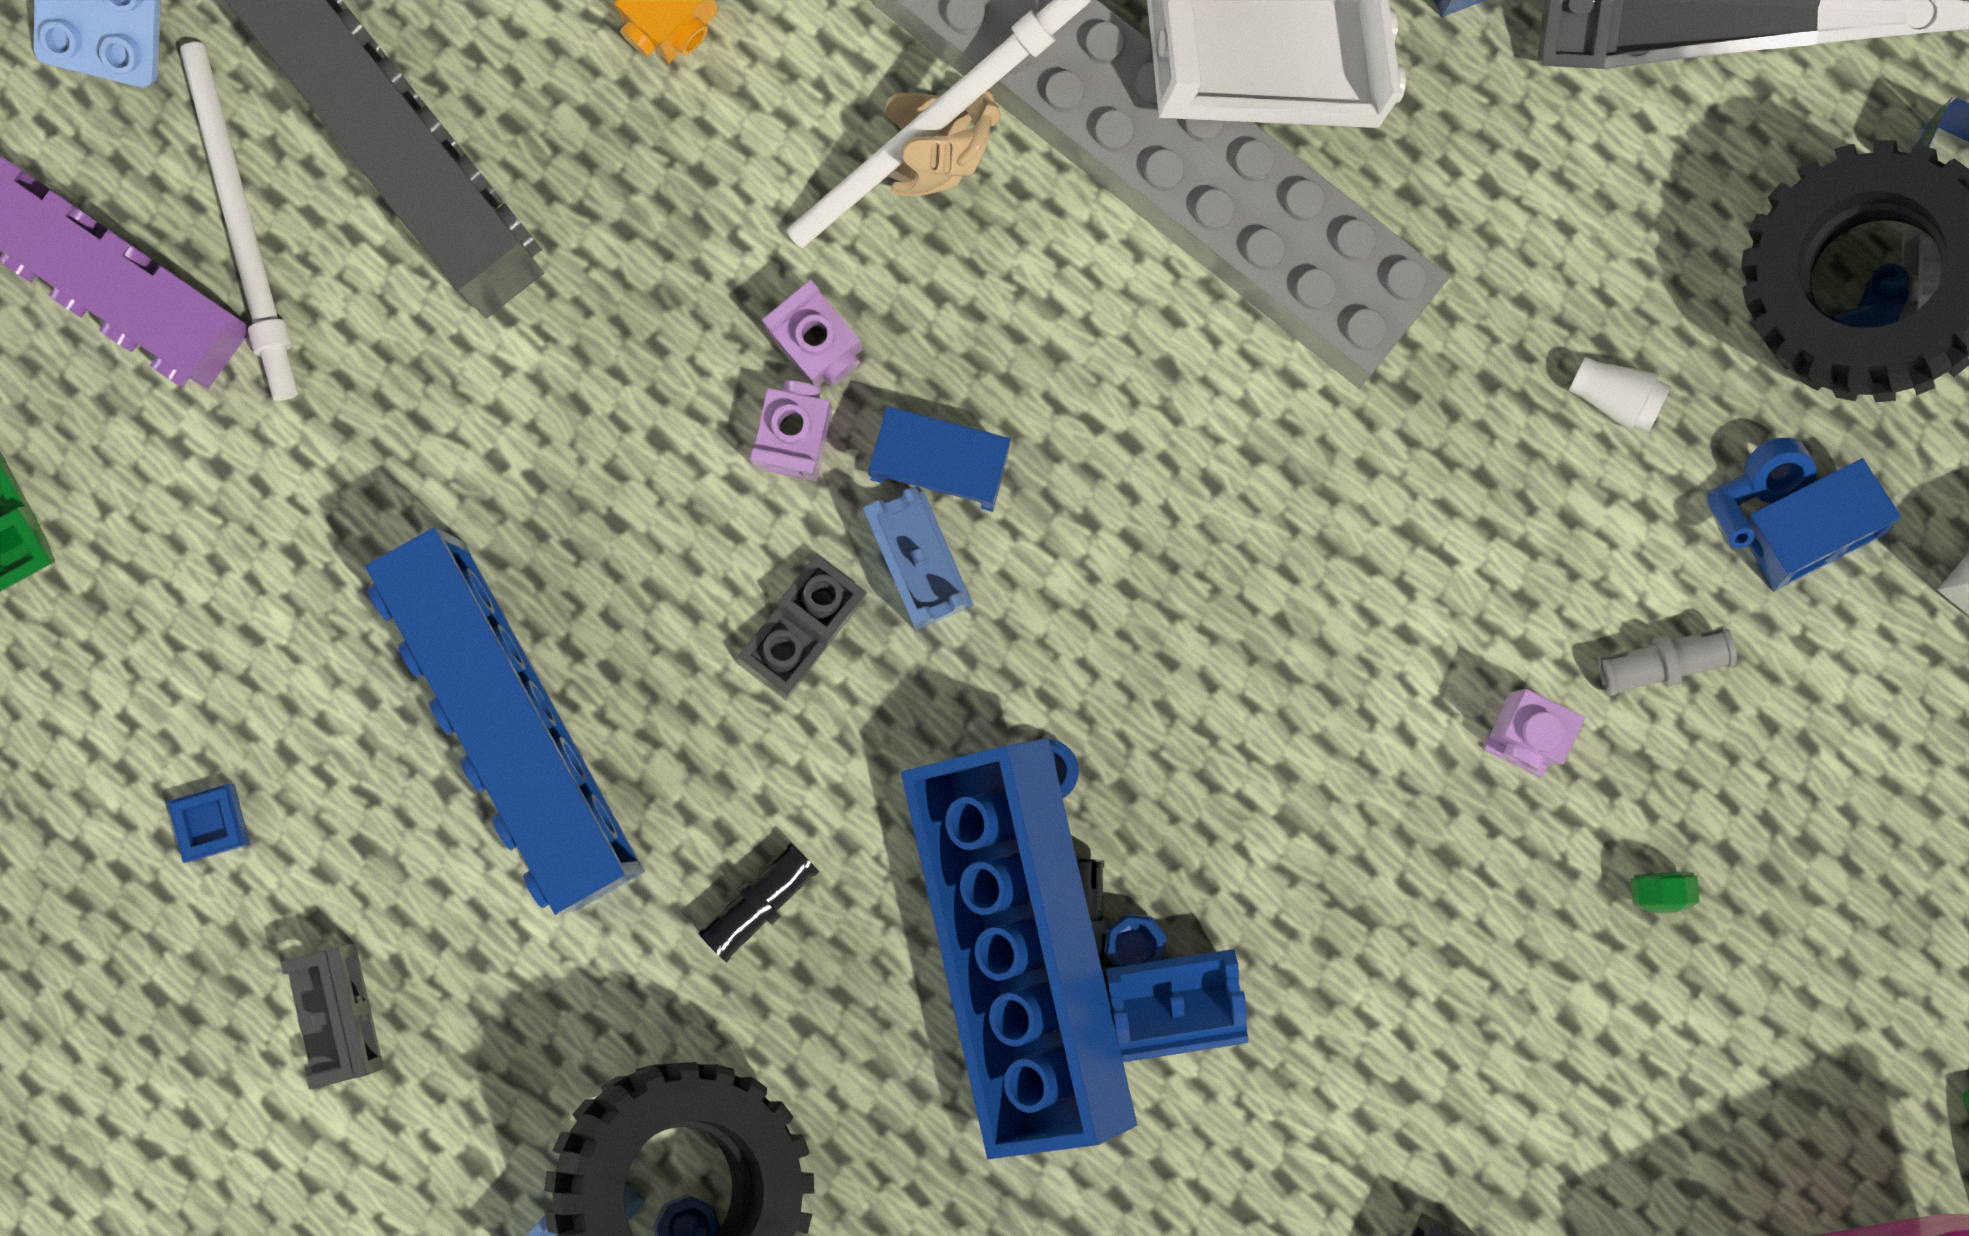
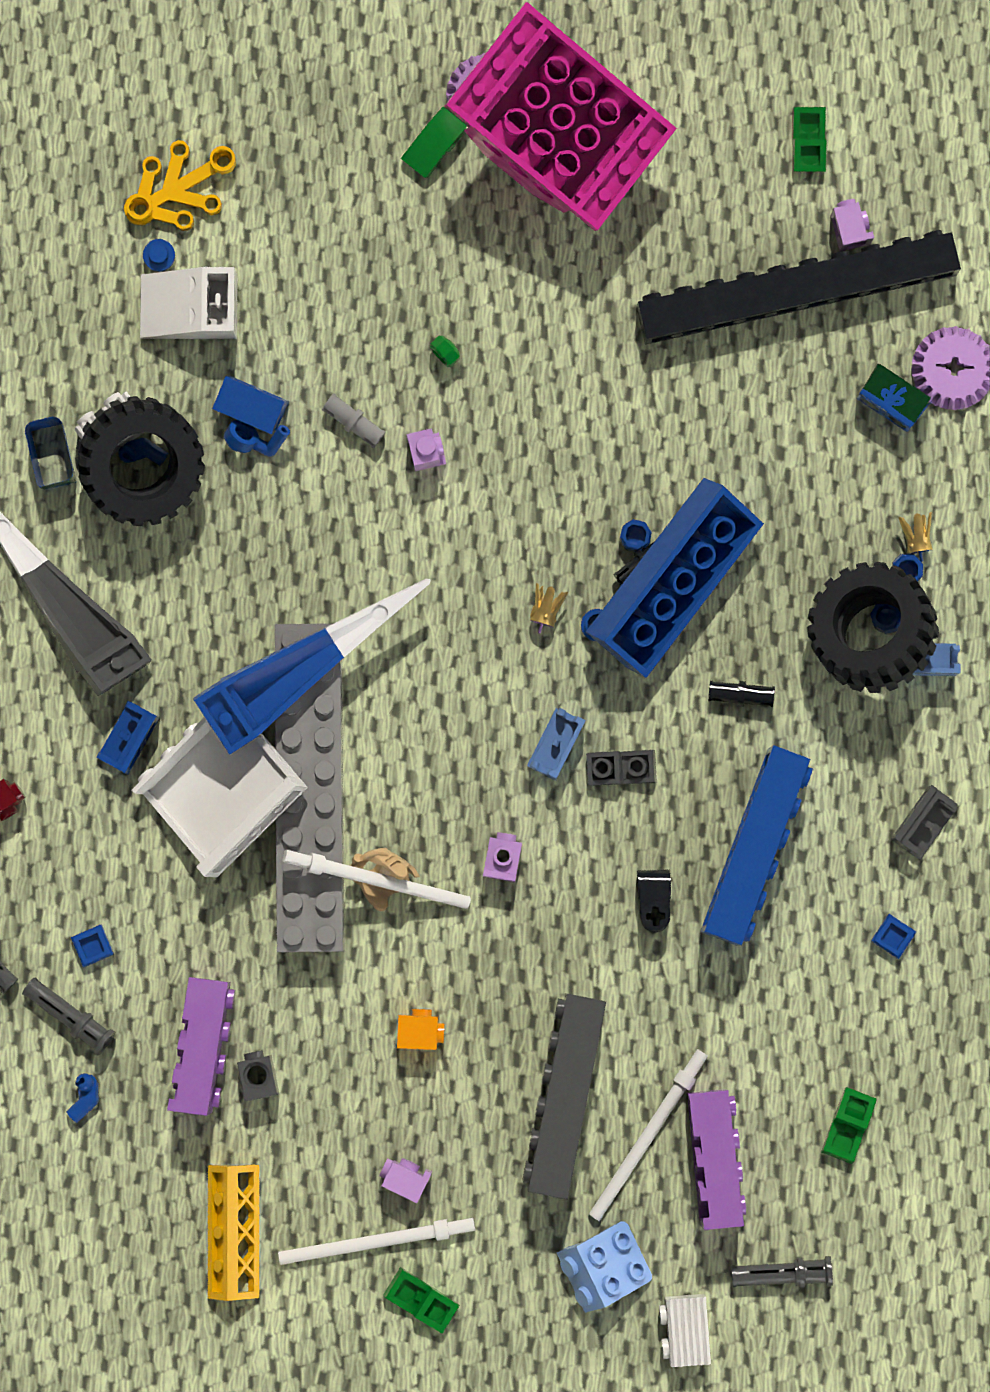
camera: 135 degrees left, 0 degrees up
(570, 514) = (654, 892): none -> black piece
(799, 453) = (560, 832): lavender brick -> none
(940, 456) = (511, 766): blue hinge -> none
(1135, 704) = (545, 607): none -> pearl gold piece
(1177, 1005) = (645, 499): blue hinge -> none
(1365, 151) = (256, 695): none -> blue plate
(1621, 392) = (260, 522): white cone -> none

